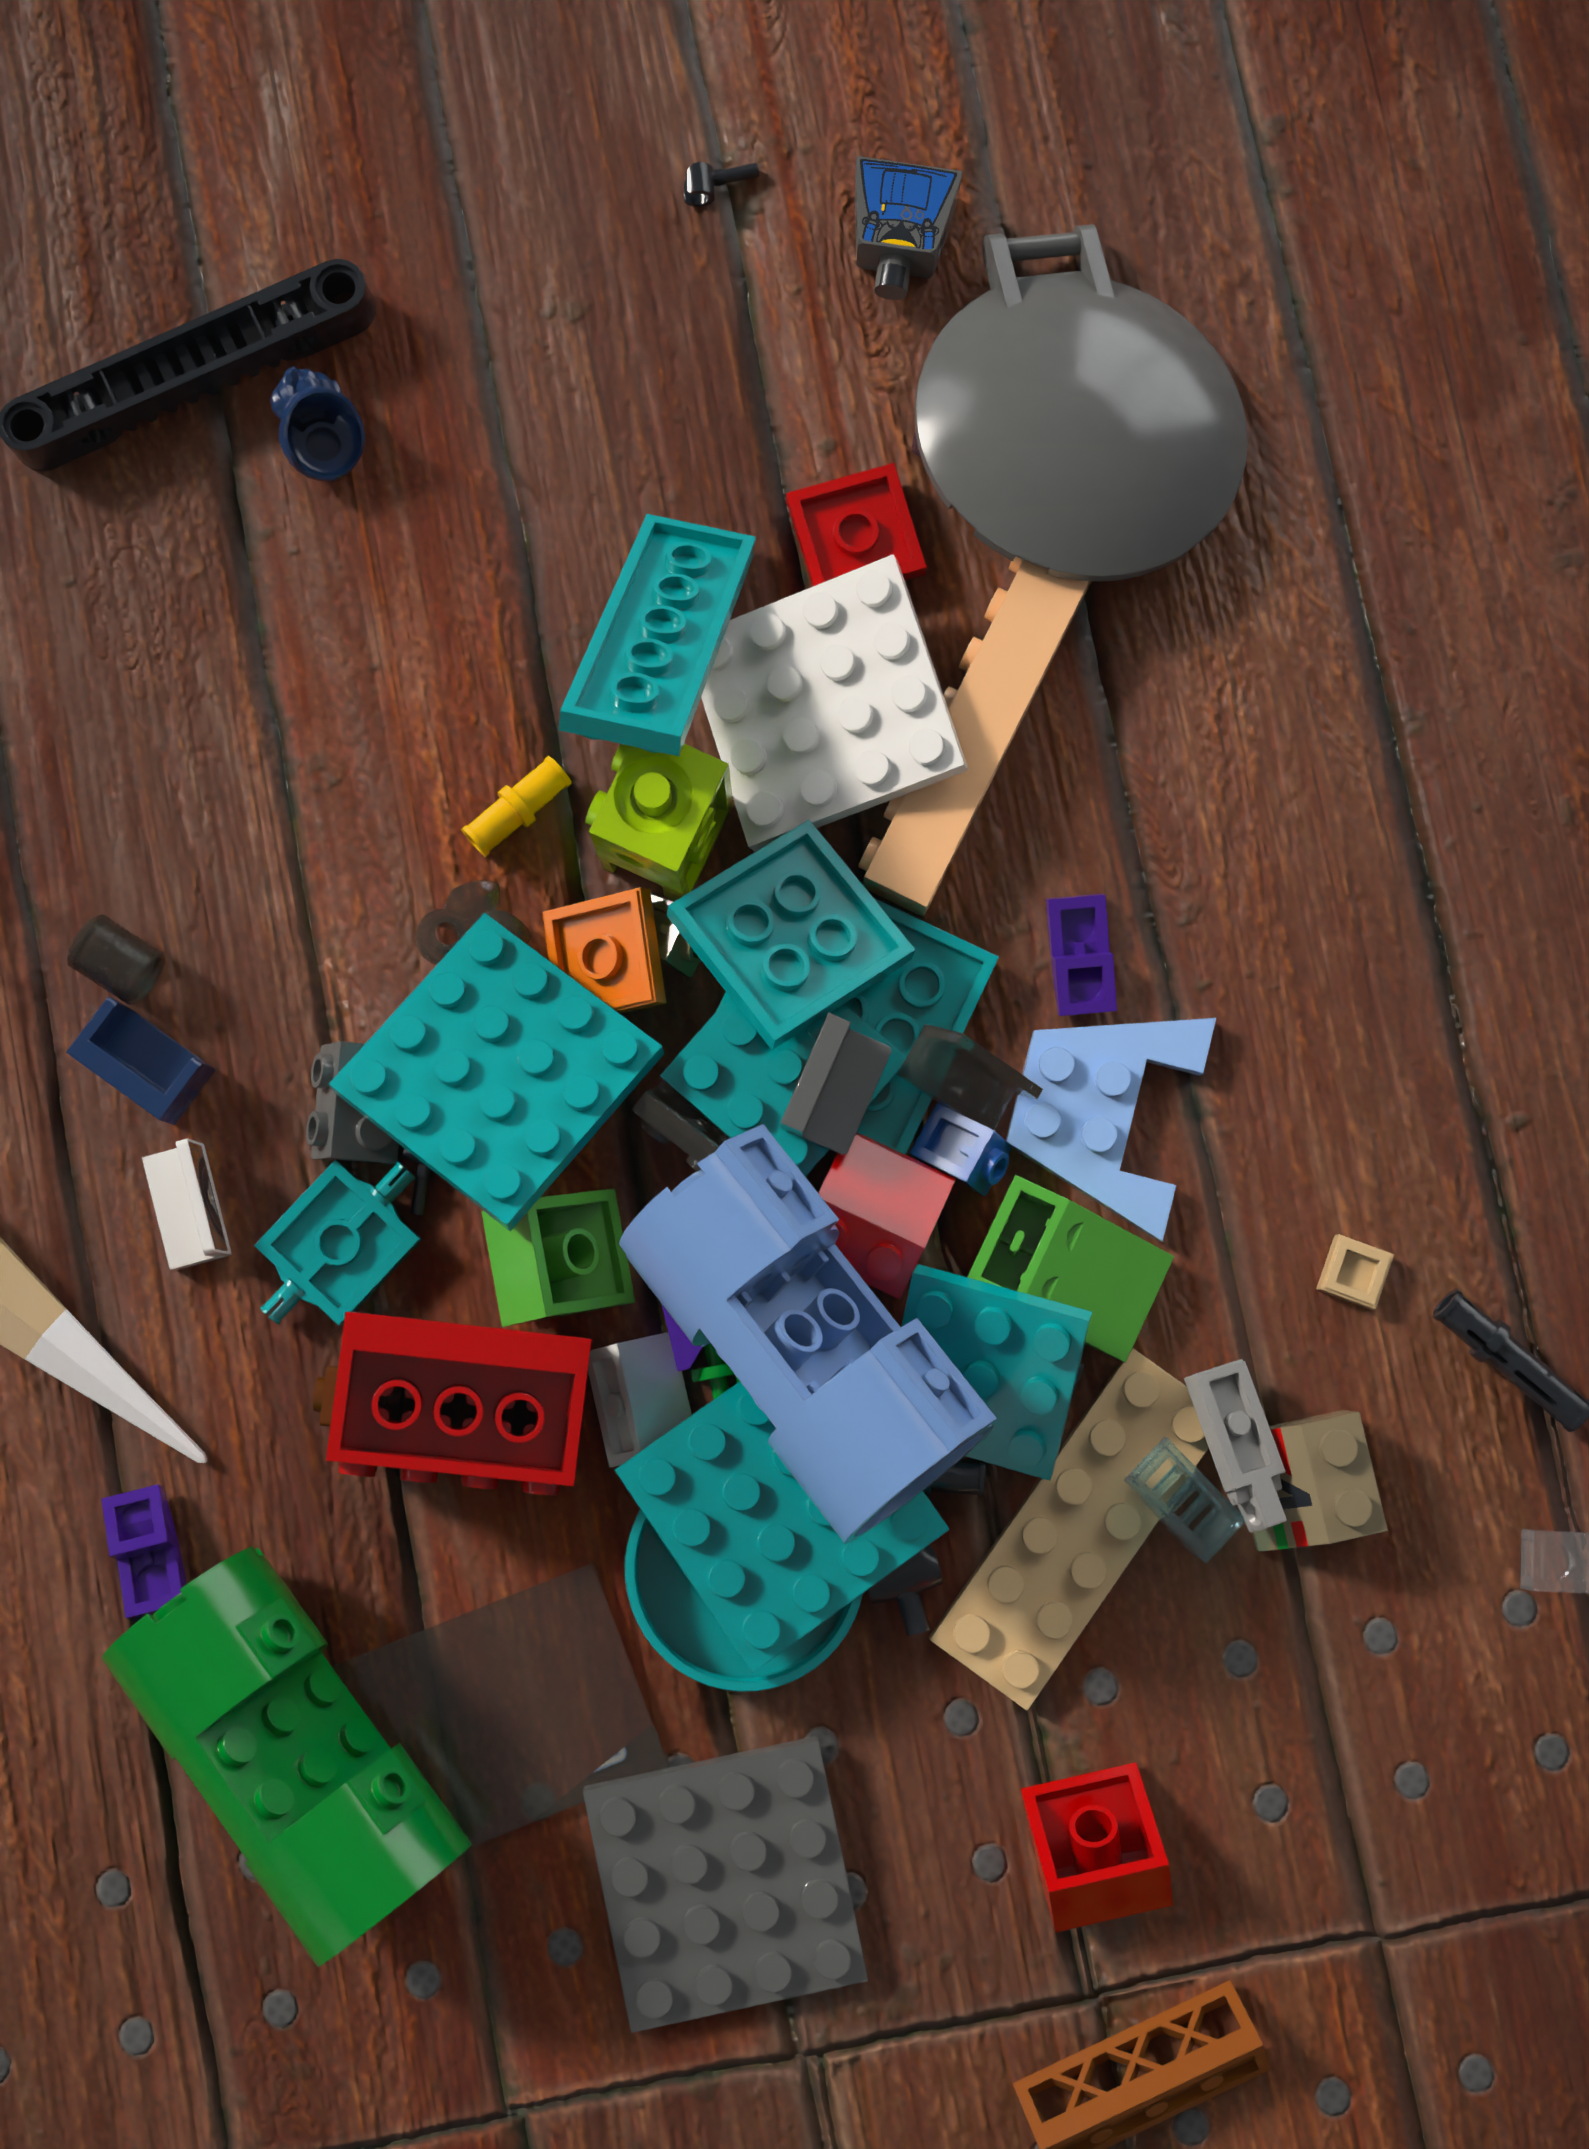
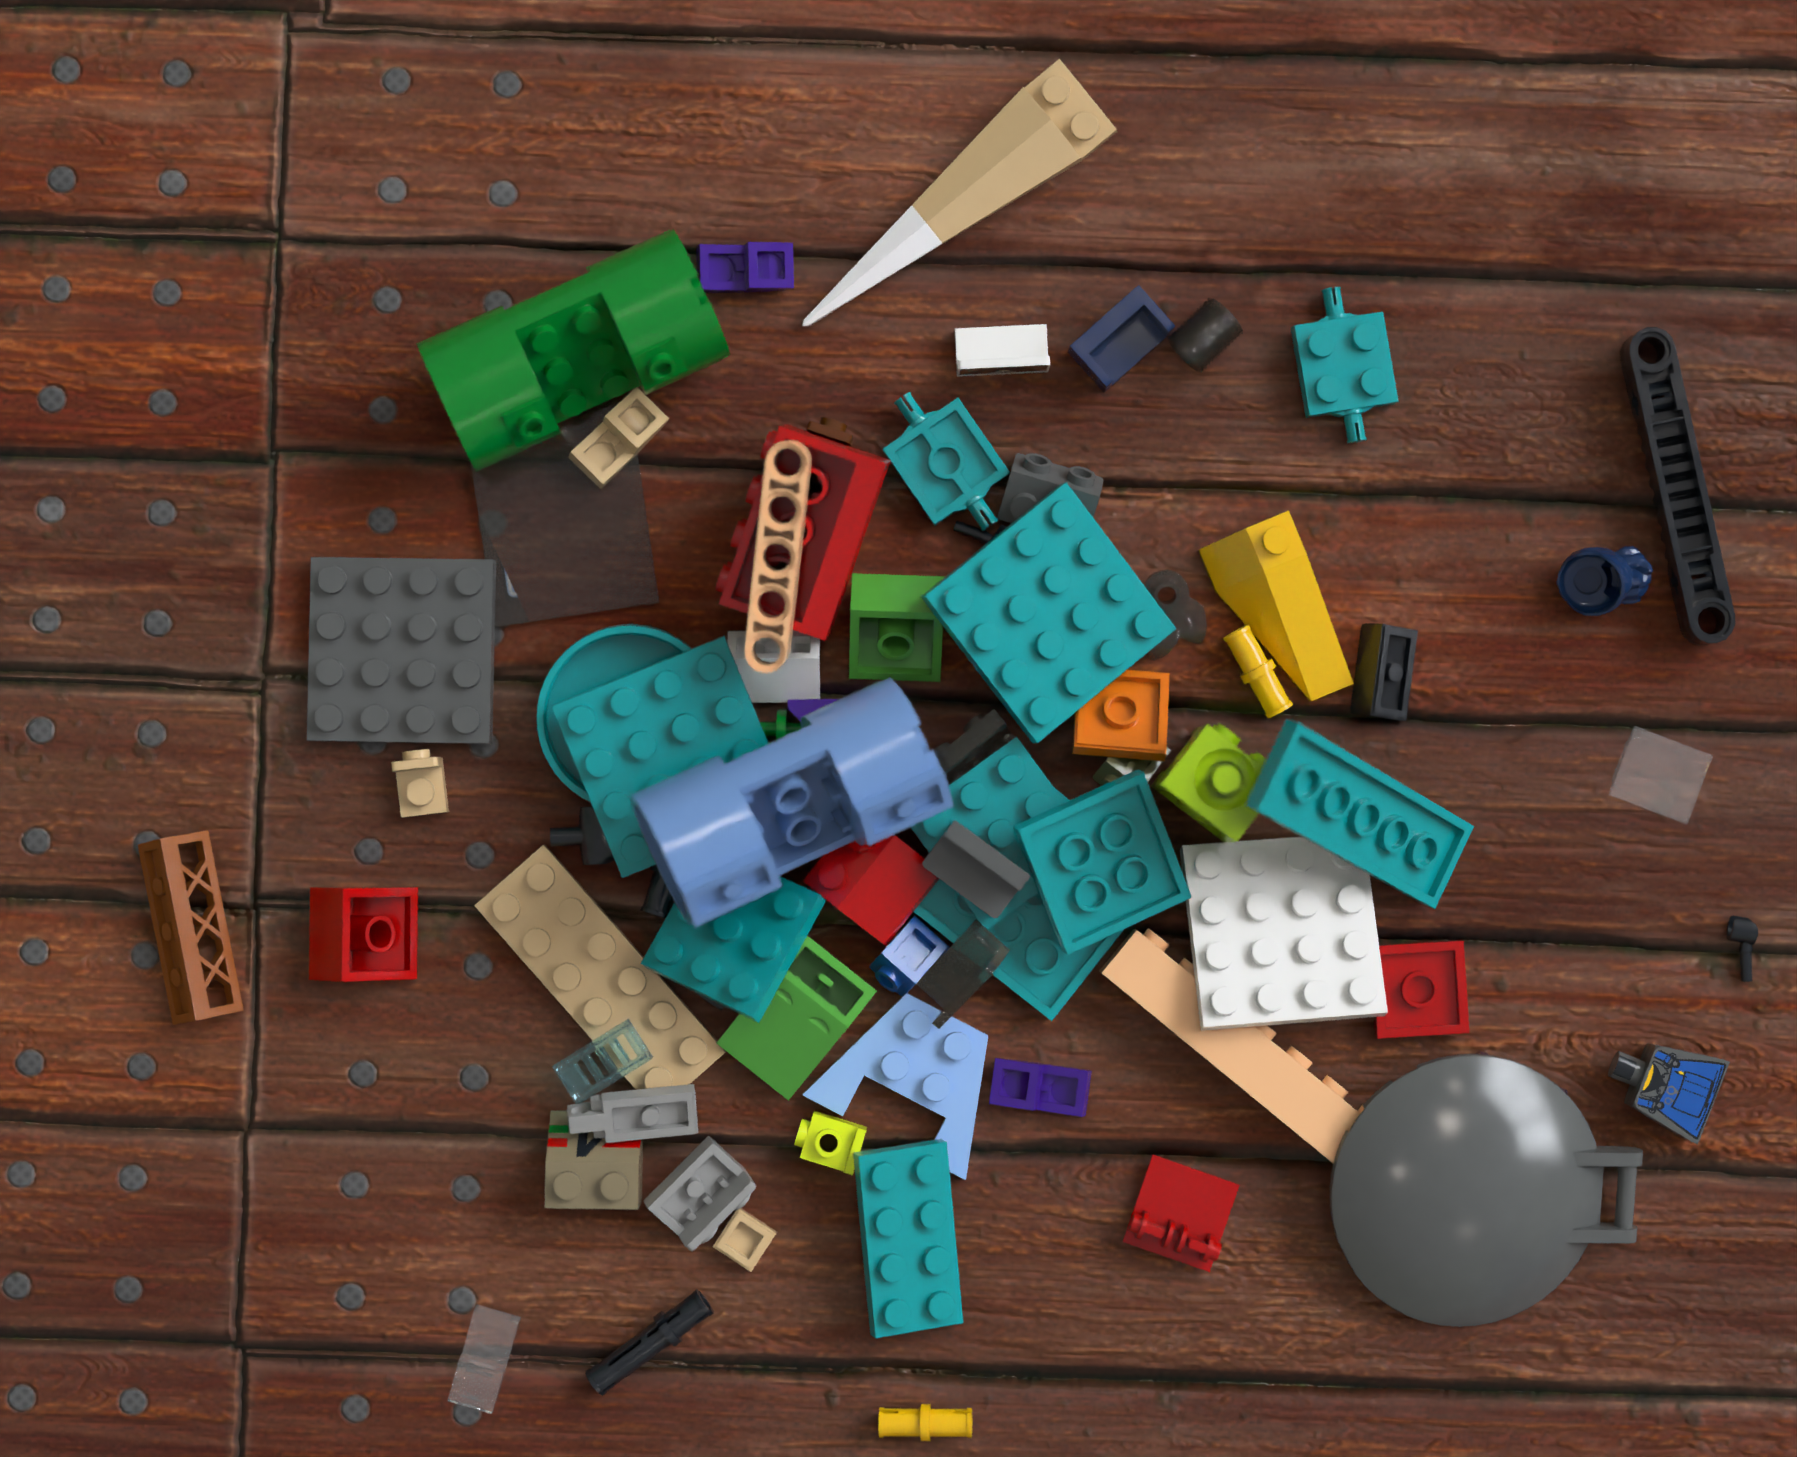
camera: 100 degrees right, 5 degrees up
(121, 786) = (1344, 364): none -> teal plate
(394, 1664) = (618, 437): none -> tan slope
(409, 809) = (1274, 590): none -> yellow wedge
(465, 1440) = (764, 575): none -> light nougat beam
(485, 660) = (1383, 671): none -> black slope
(537, 316) = (1659, 775): none -> clear piece
(889, 1816) = (420, 784): none -> tan bracket
(1190, 753) = (1181, 1213): none -> red hinge
(1195, 1173) = (849, 1138): none -> neon yellow brick
(1305, 1070) = (908, 1238): none -> teal plate
(1315, 1337) = (701, 1193): none -> light grey bracket
(1520, 999) = (925, 1422): none -> yellow pin

